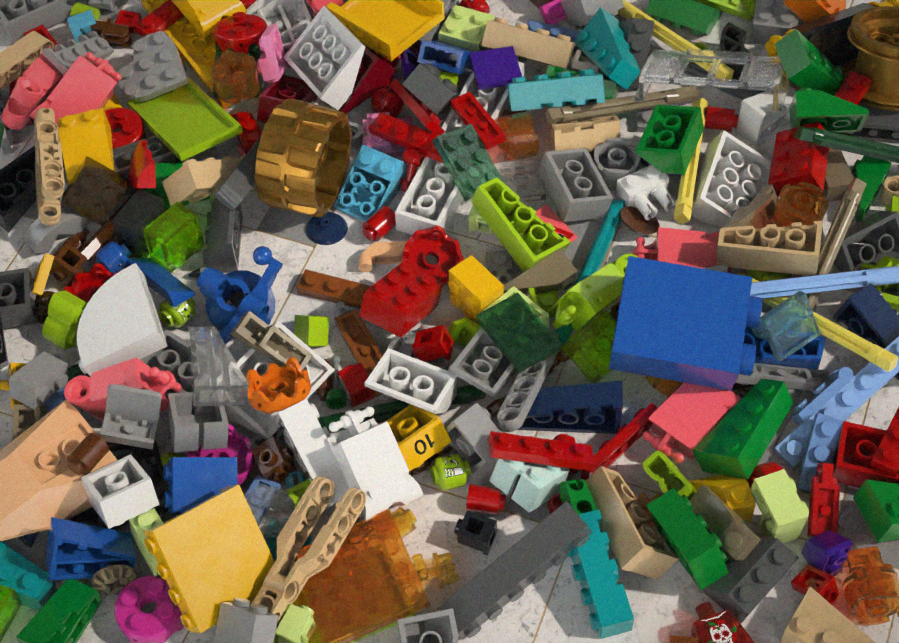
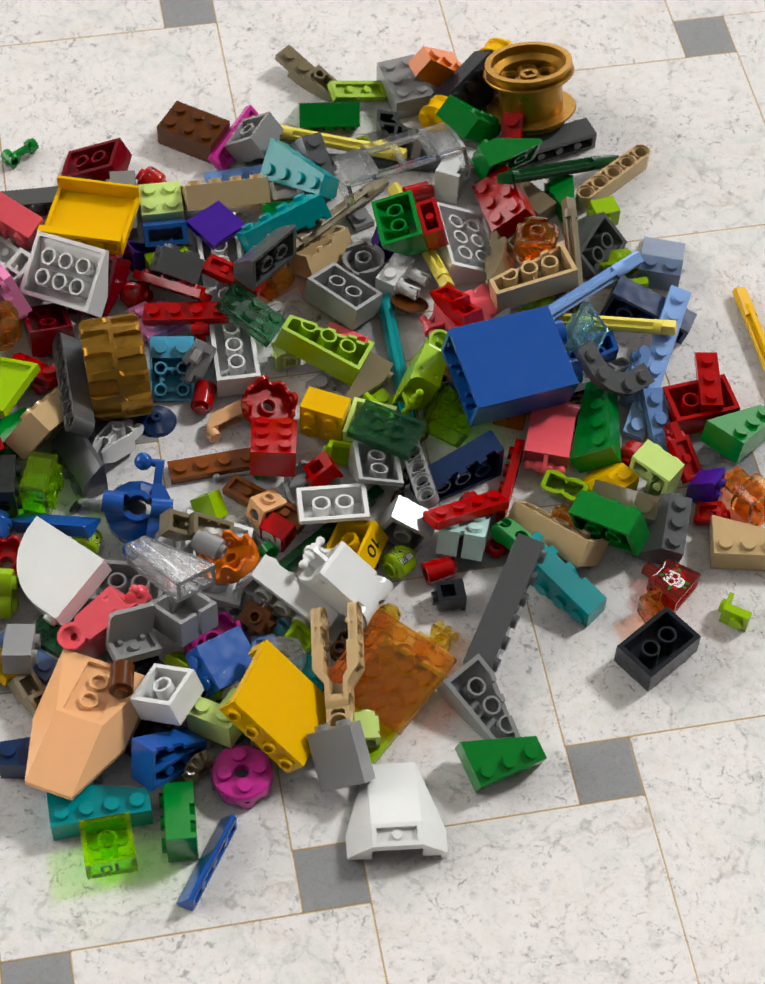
camera: 35 degrees left, 0 degrees up
(264, 364) = (209, 545): none -> light grey brick
(270, 228) = (117, 440): none -> white hinge
(361, 350) = (264, 503): none -> light nougat bracket
(391, 185) = (199, 359): none -> light grey rock
(512, 115) = (266, 257): none -> dark grey slope
(674, 240) = (456, 305): none -> red slope
(701, 149) = (432, 224): none -> red brick
(779, 383) = (607, 378): none -> dark grey plate

